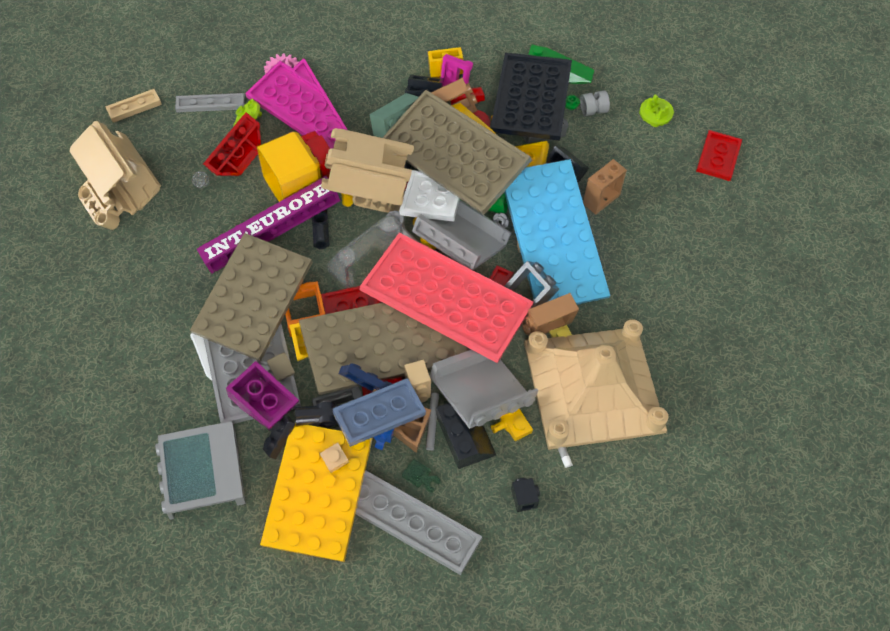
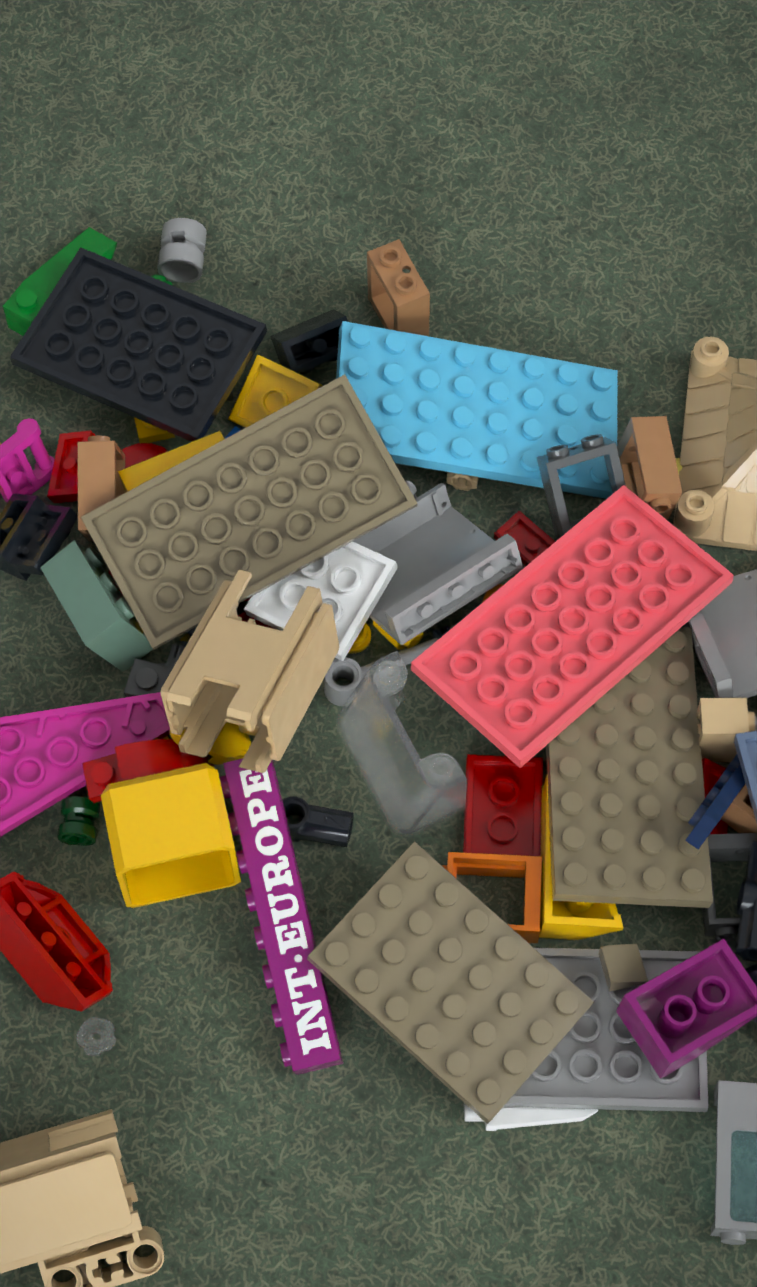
camera: 70 degrees left, 5 degrees up
(656, 111) = (218, 163): lime plate -> none
(719, 155) = (368, 99): red tile -> none

